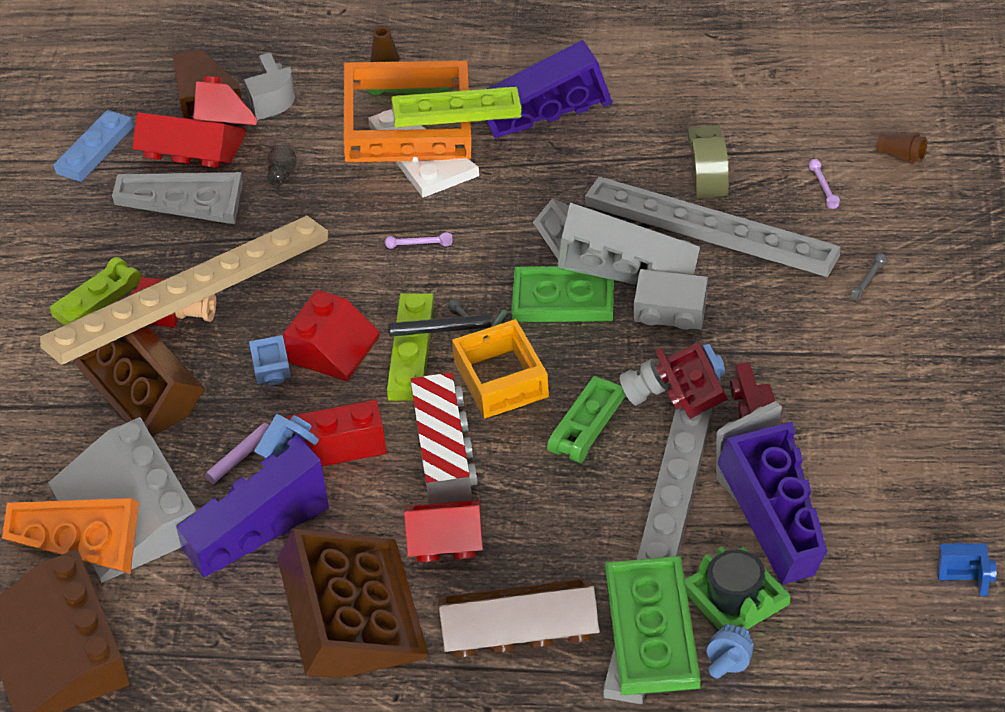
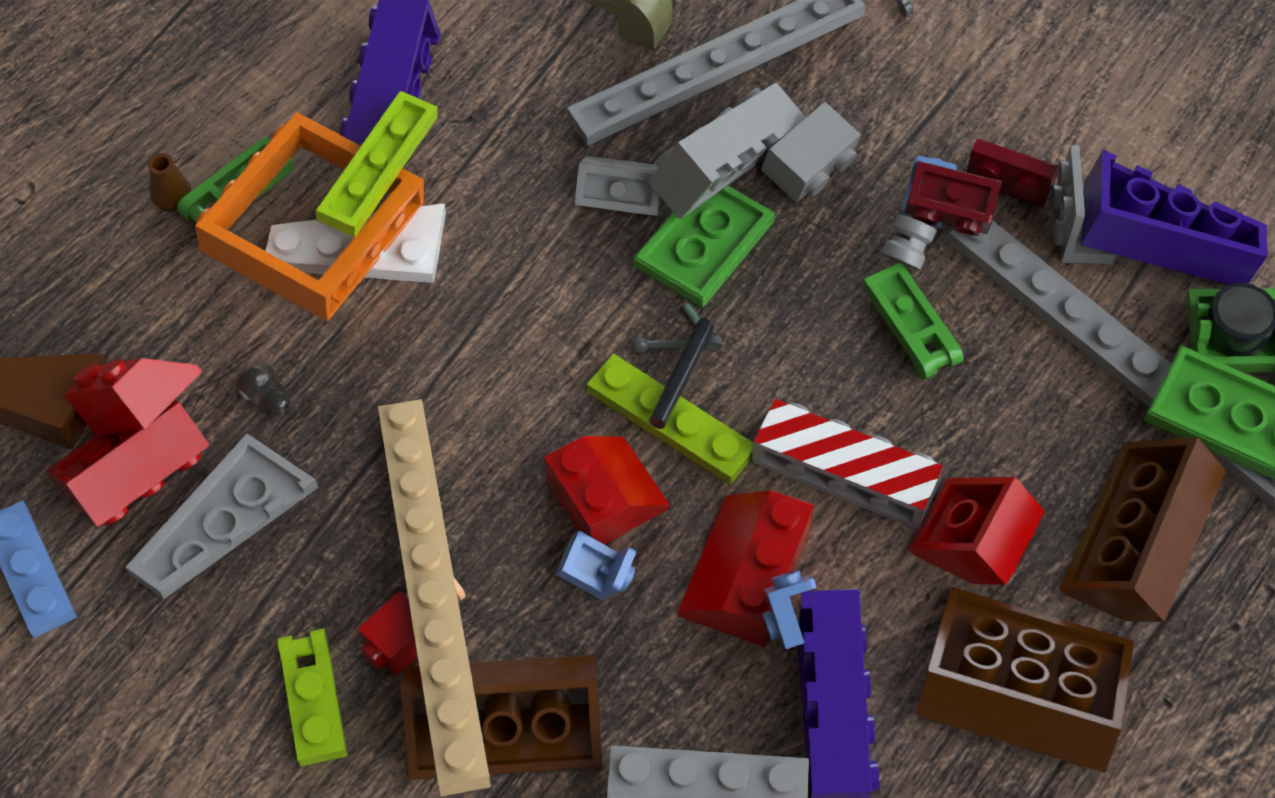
camera: 60 degrees left, 15 degrees up
(236, 455) = (707, 674): lavender piece -> none
(272, 90) = (120, 323): light grey brick -> none
(444, 239) = (525, 298): lavender hinge -> none
(508, 391) = (786, 322): light orange window -> none

